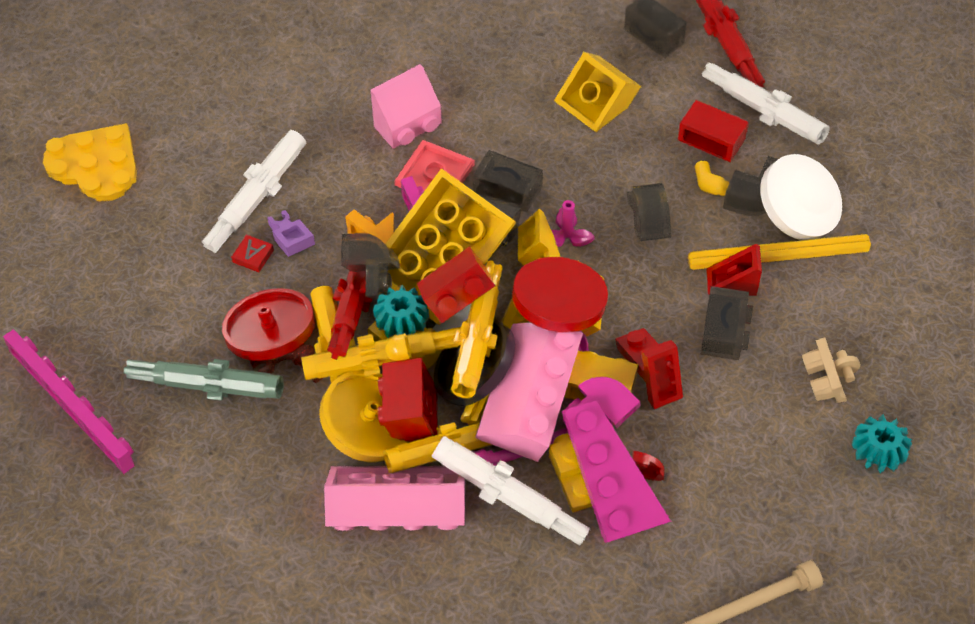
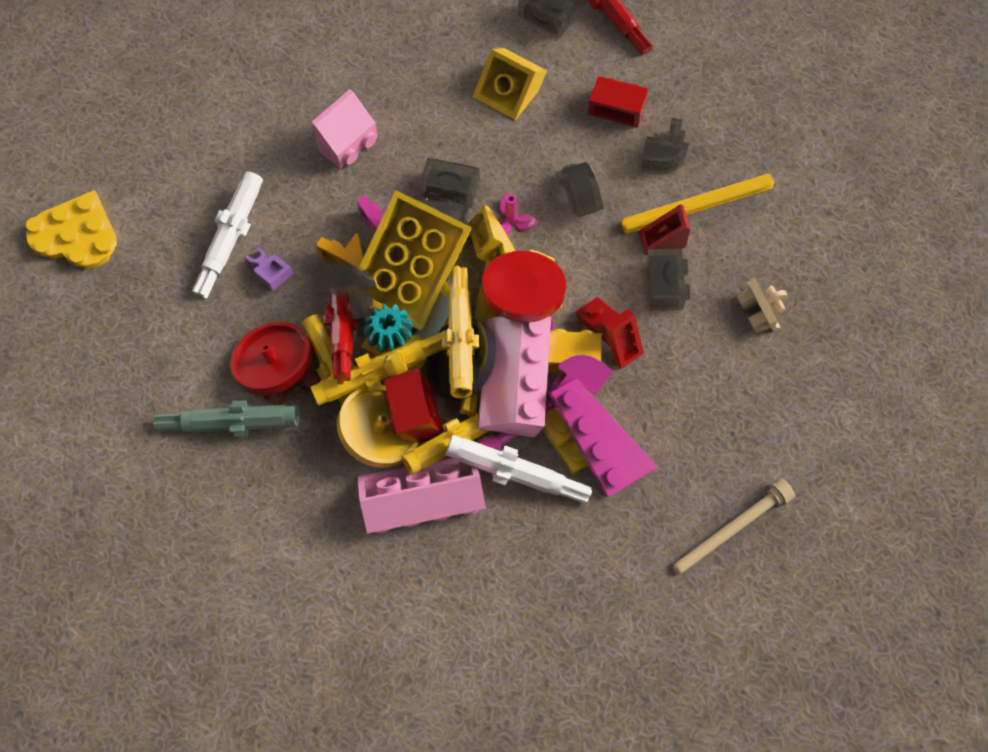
camera: 10 degrees left, 10 degrees up
(77, 408) = (104, 457): dark pink plate -> none
(252, 253) = (239, 293): red tile -> none
(428, 161) = (380, 179): coral tile -> none
(455, 284) = (431, 295): red brick -> none
(649, 466) = (629, 422): red tile -> none
(710, 182) = (623, 149): yellow arm -> none
(774, 107) = (664, 68): white piece -> none
(801, 197) = (707, 151): white piece -> none
(868, 444) = (824, 372): teal gear -> none

